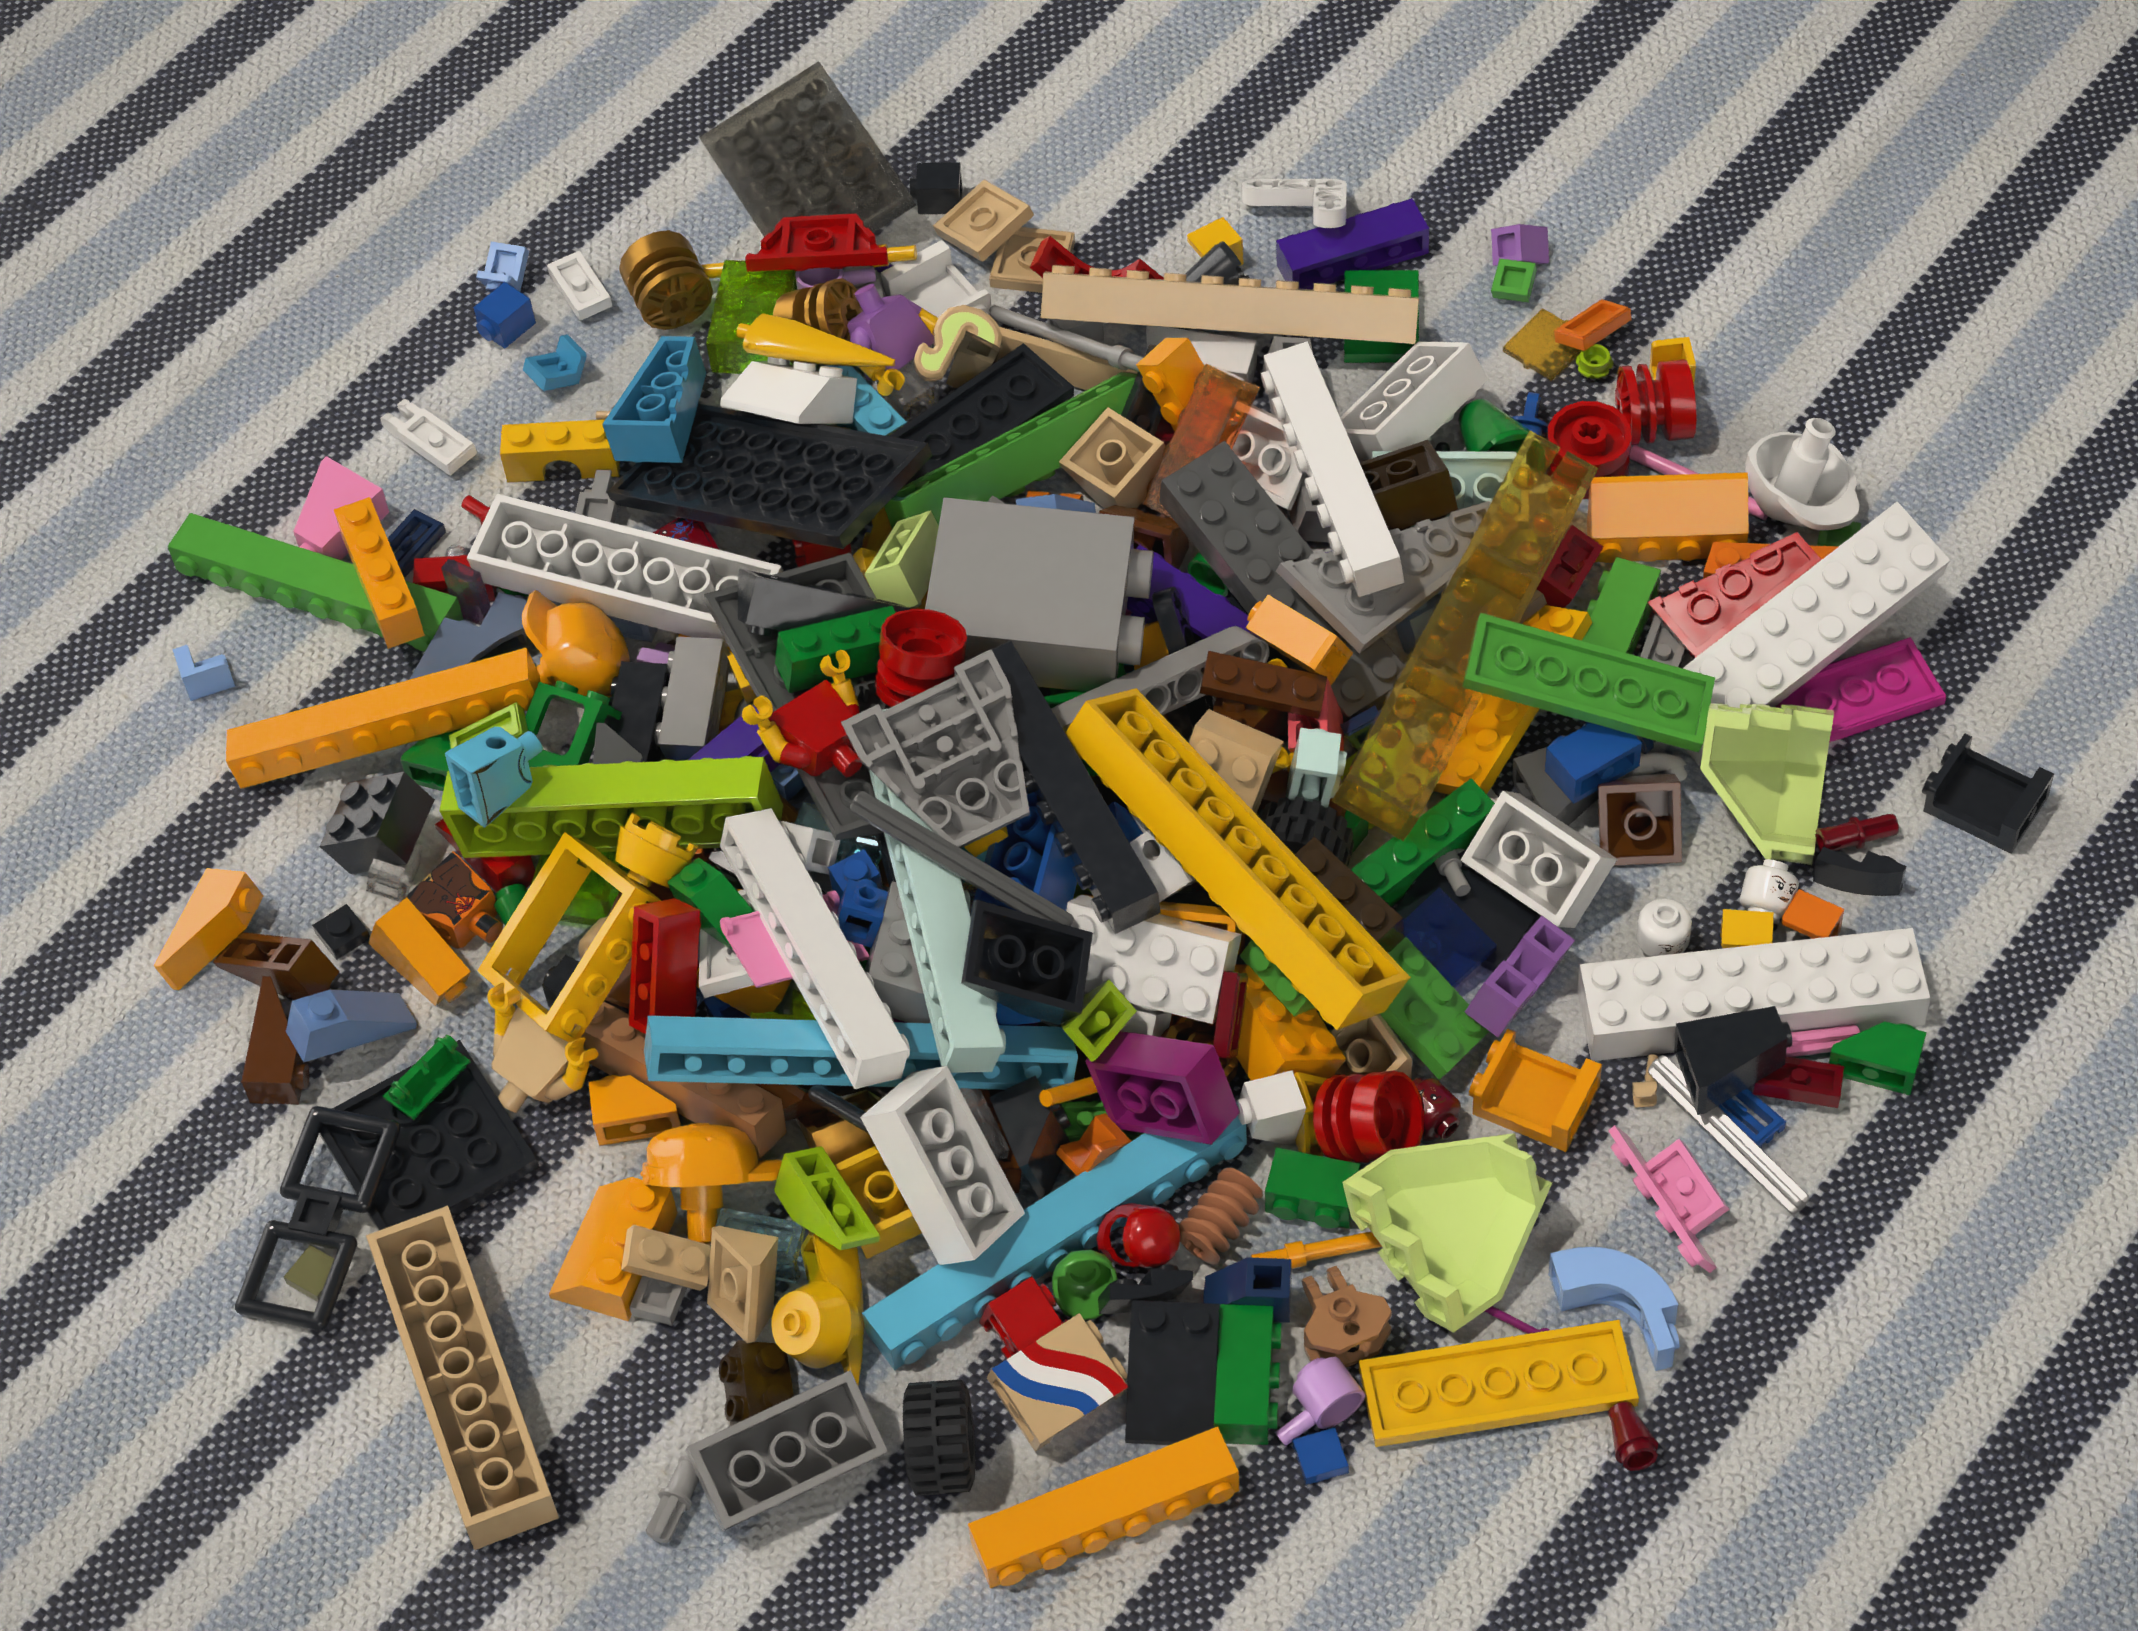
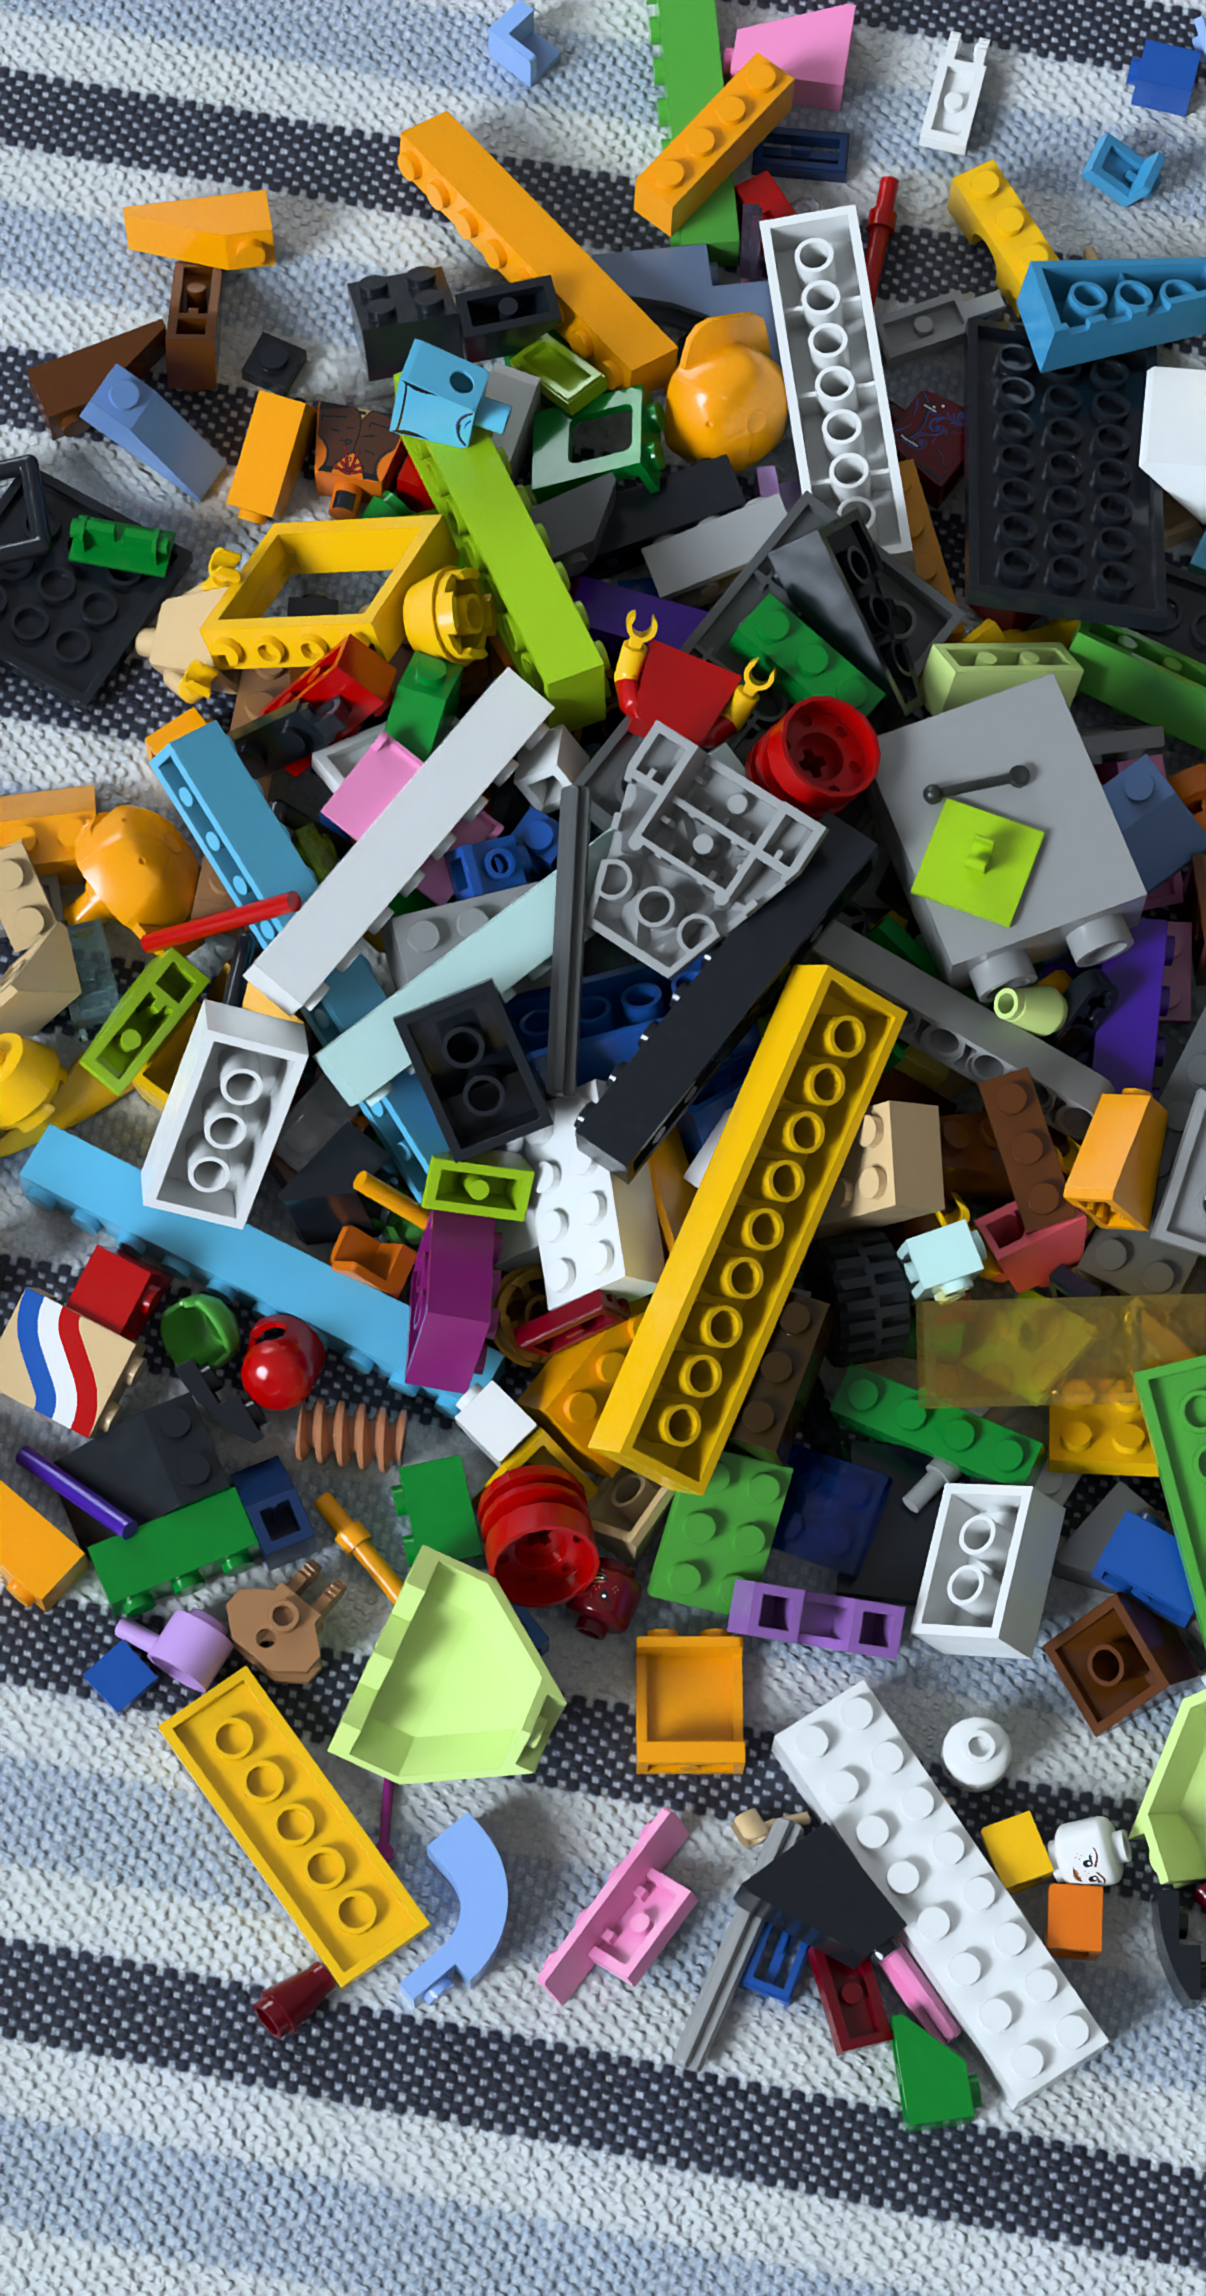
camera: 55 degrees right, 15 degrees up
(425, 744) = (506, 317): none -> black slope
(677, 981) = (288, 734): none -> black hinge
(796, 1097) = (221, 922): none -> red bar
(1005, 550) = (1017, 777): none -> pearl dark grey hinge
(1052, 601) = (977, 862): none -> lime piece
(1163, 1418) = (76, 1492): none -> dark purple bar
(1167, 633) = (1033, 1008): none -> yellowish green cone

